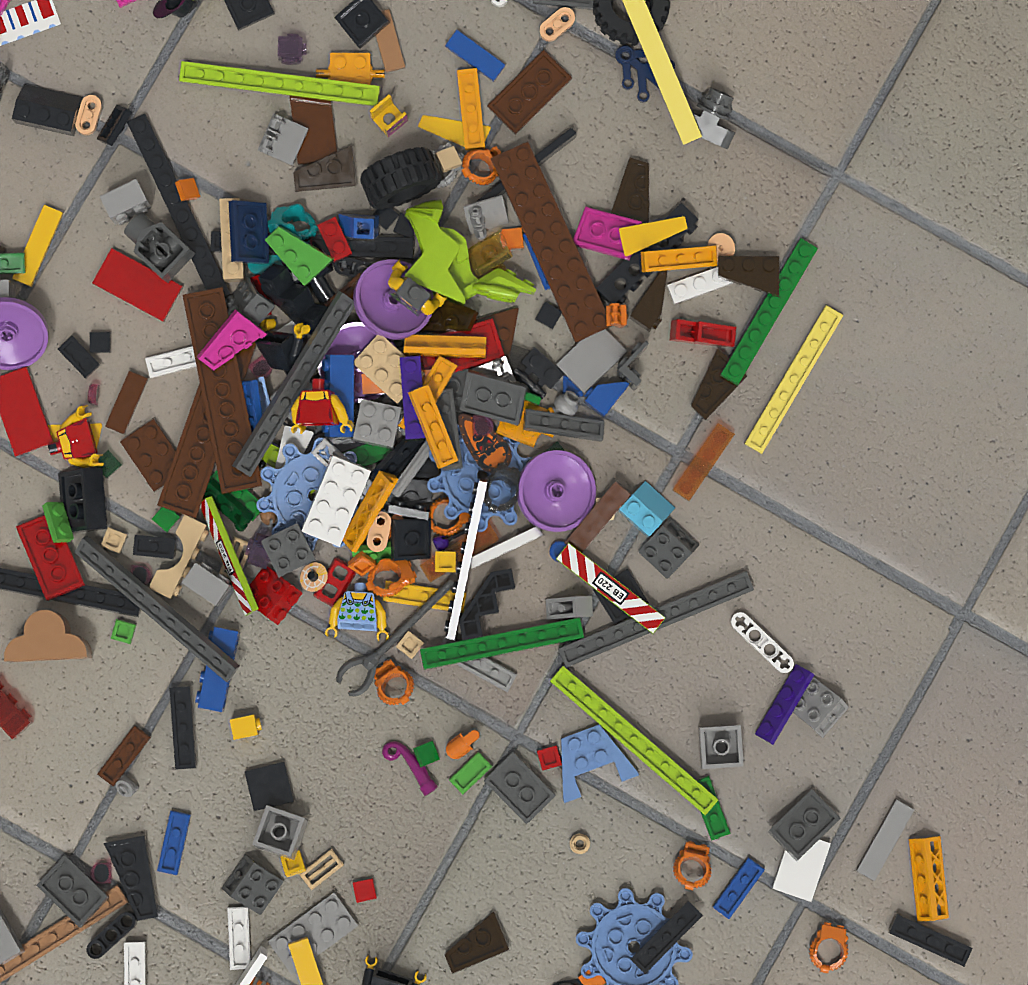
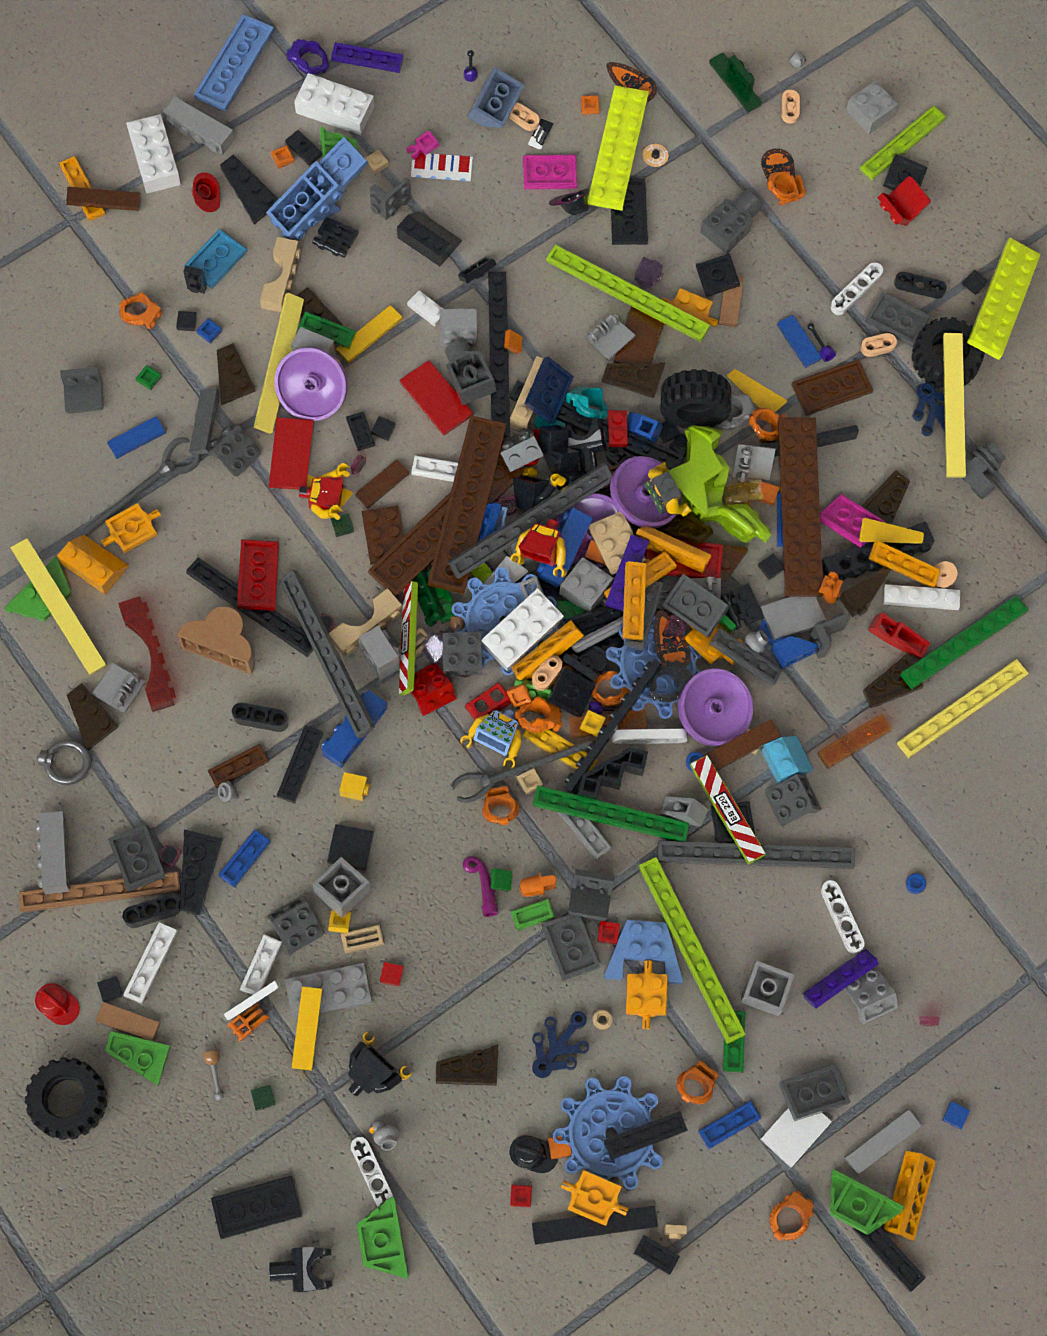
camera: 25 degrees right, 15 degrees down
(58, 522) = (278, 550): bright green plate -> none
(82, 190) = (425, 308): none -> white plate
(84, 499) = (307, 543): black slope -> none
(88, 115) = (457, 254): light nougat plate -> none
(114, 540) = (317, 586): tan plate -> none
(123, 631) = (288, 664): bright green tile -> none
(132, 699) = (267, 723): none -> black beam
(154, 546) = (348, 606): black plate -> none
(166, 519) = (369, 588): green tile -> none
(230, 339) = (494, 463): dark pink wing -> none
(300, 257) = (582, 424): bright green wing -> none
(313, 577) = (472, 689): light nougat piece -> none
(385, 107) = (704, 353): yellow piece -> none
(448, 159) = (742, 405): tan tile -> none
(471, 109) = (777, 377): light orange plate -> none
(508, 56) = (827, 352): none -> dark purple hinge
(518, 732) = (591, 894): none -> dark grey bracket
(549, 889) = (557, 1047): none -> dark blue plant
(611, 801) = (647, 995): none -> light orange plate
(751, 271) = (965, 602): dark brown wing -> none
(817, 577) = (915, 883): none -> blue tile
(882, 707) = (929, 1021): none -> clear pink tile
(887, 910) = (860, 1205): none -> bright green wing
(941, 784) = (956, 1115): none -> blue tile

